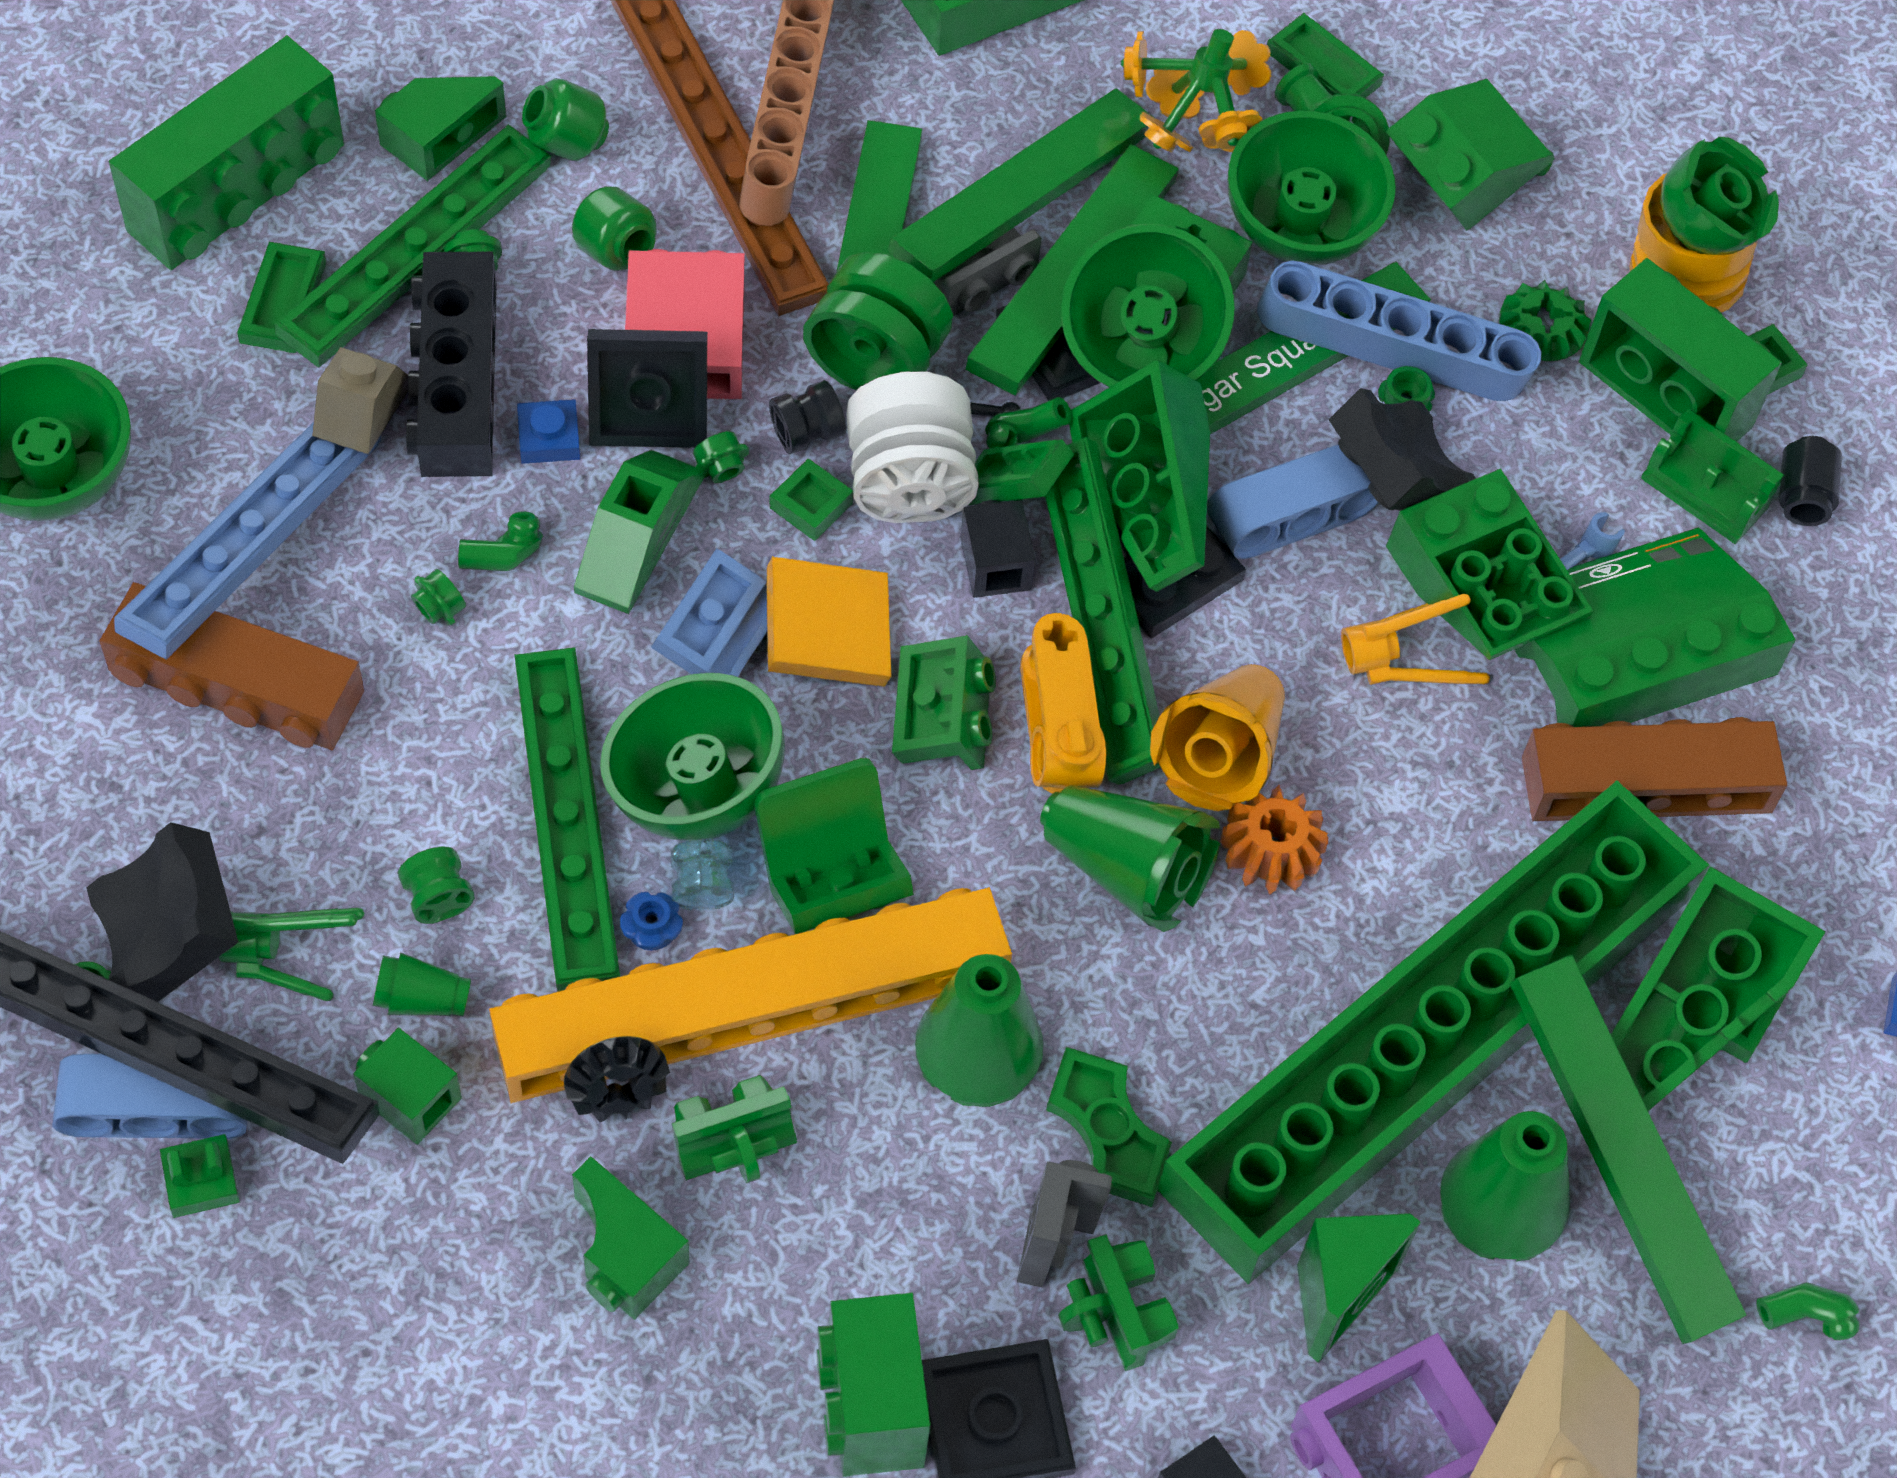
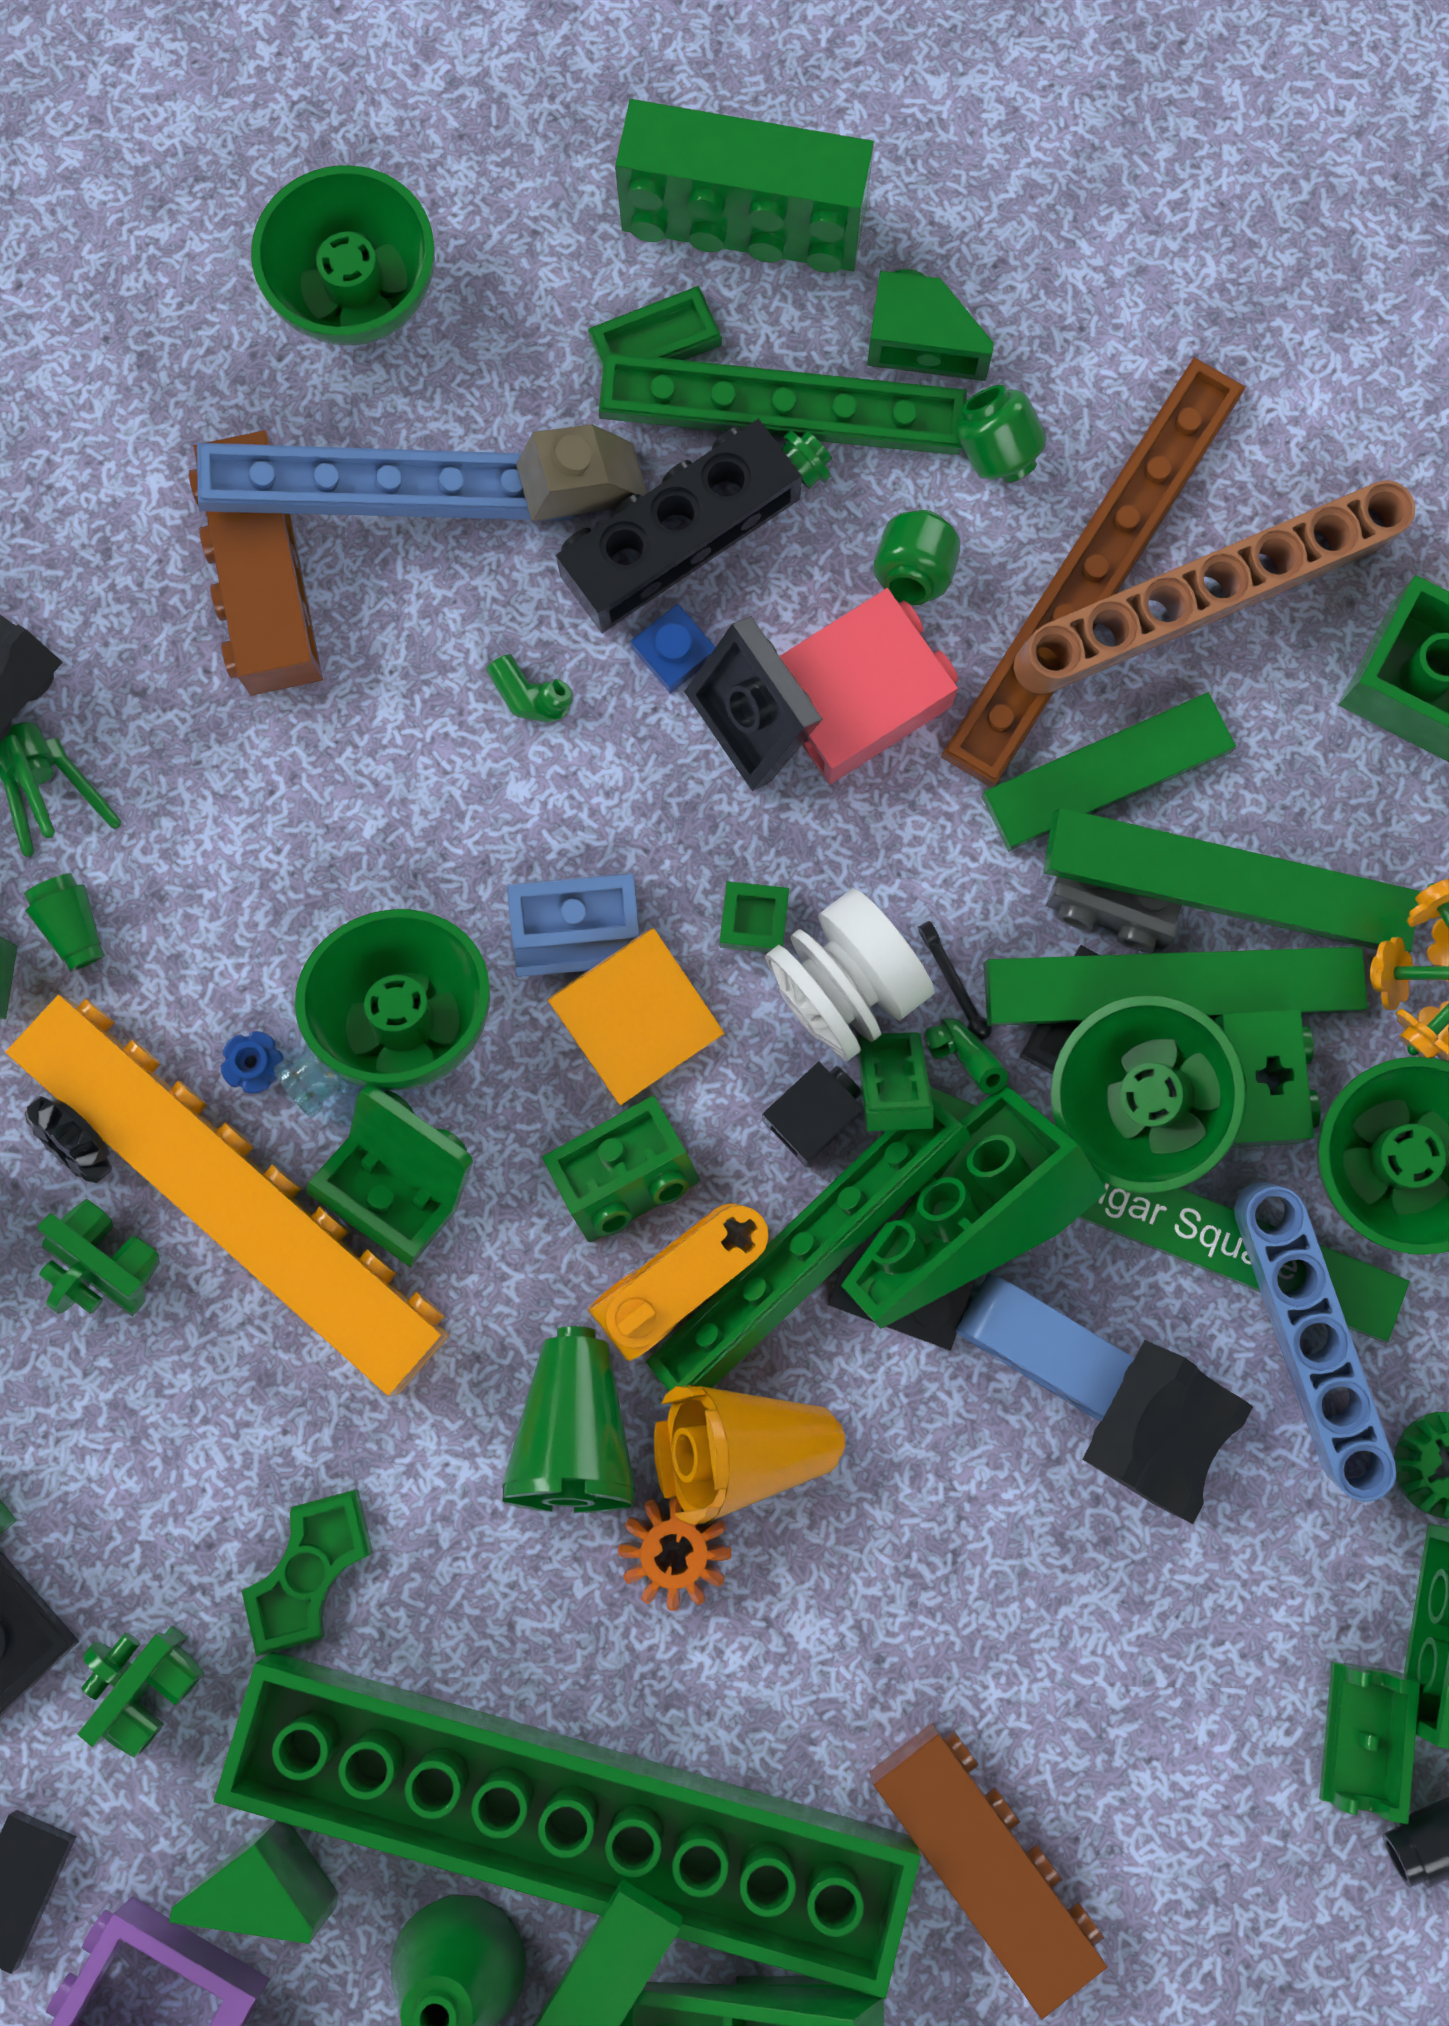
camera: 65 degrees right, 20 degrees up
(435, 884) = (164, 868): green wheel -> none
(437, 597) = (439, 676): green plate -> none
(566, 817) = (279, 946): green tile -> none
(634, 527) = (622, 788): green slope -> none
(721, 456) = (744, 811): green plate -> none
(807, 417) = (835, 856): black wheel -> none
(876, 320) = (961, 858): green wheel -> none
(980, 1035) = (314, 1412): green cone -> none
(1066, 1201) = (177, 1587): dark grey bracket -> none
(1373, 644) = (947, 1519): light orange plant -> none
(1407, 381) = (1275, 1374): green plate -> none
(1492, 549) = (1096, 1589): green slope -> none
(1593, 542) = (1212, 1658): medium blue hand -> none
(1663, 633) = (1147, 1765): green piece -> none

